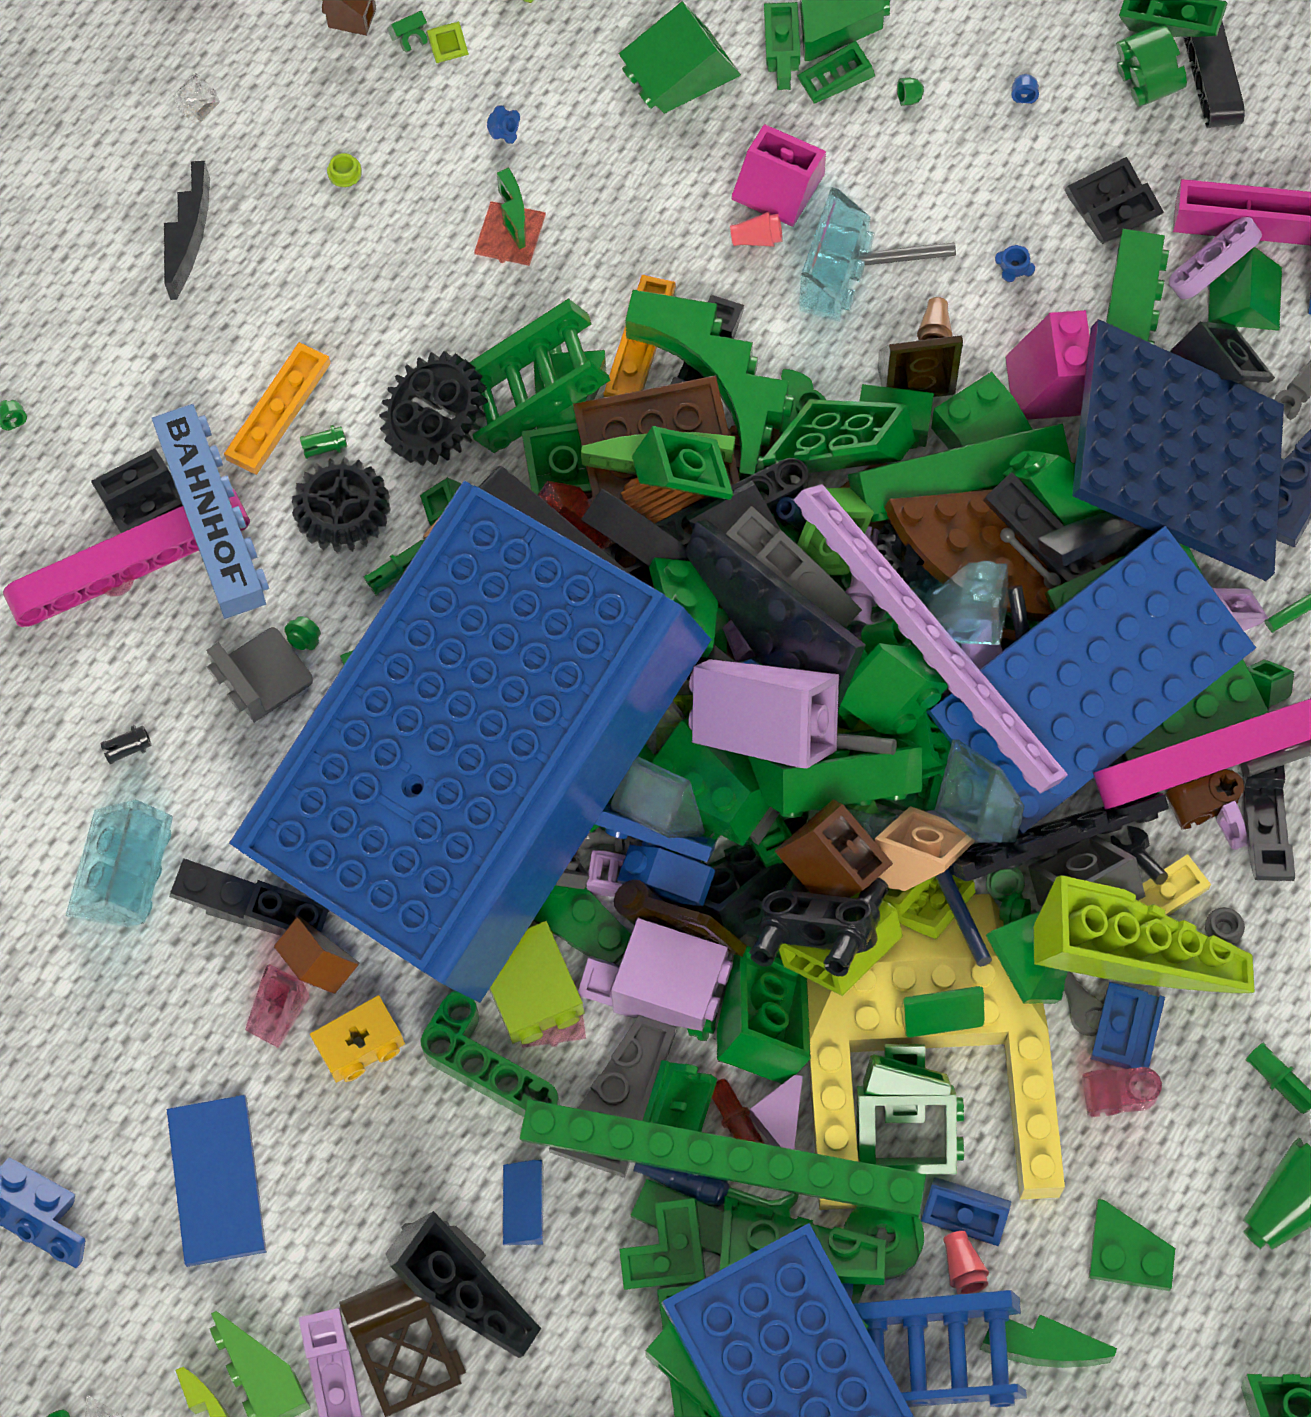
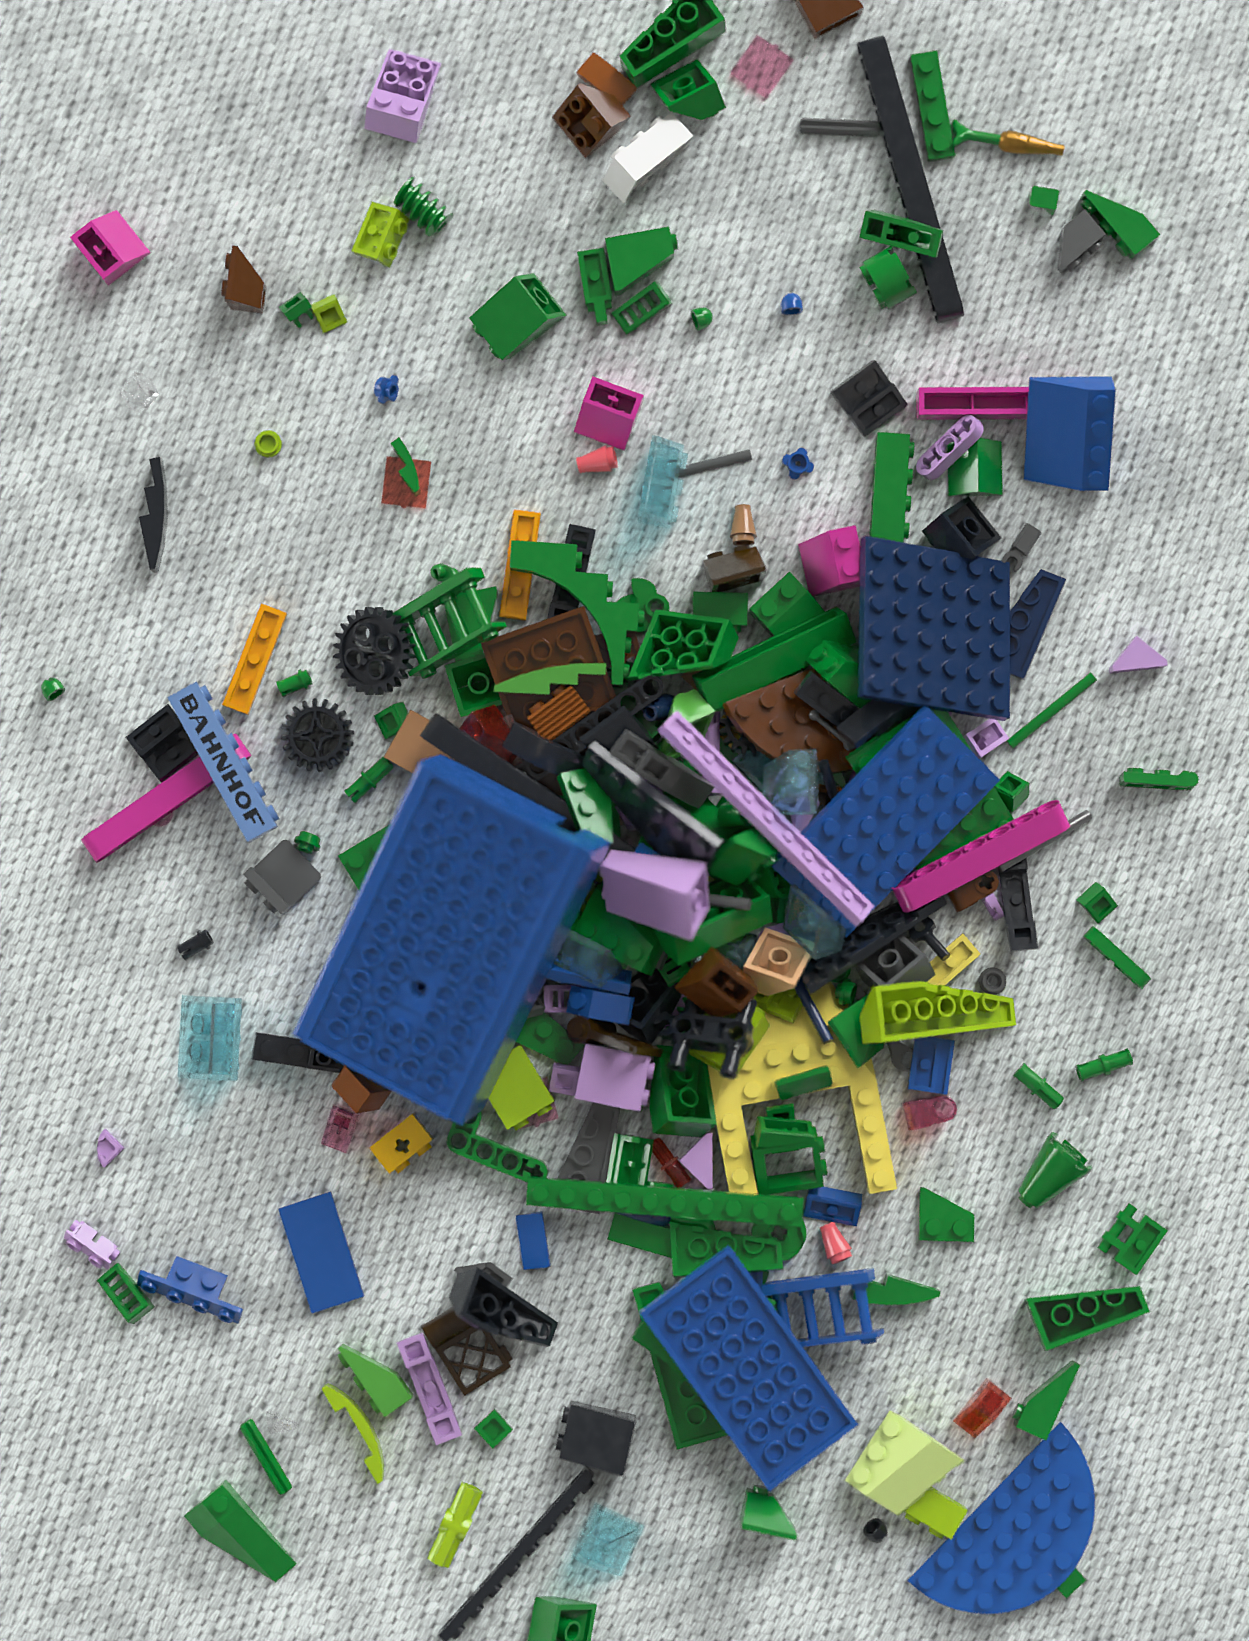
camera: 10 degrees left, 20 degrees up
(675, 1258) = (641, 1266): green plate -> none
(682, 463) = (572, 702): green slope -> none

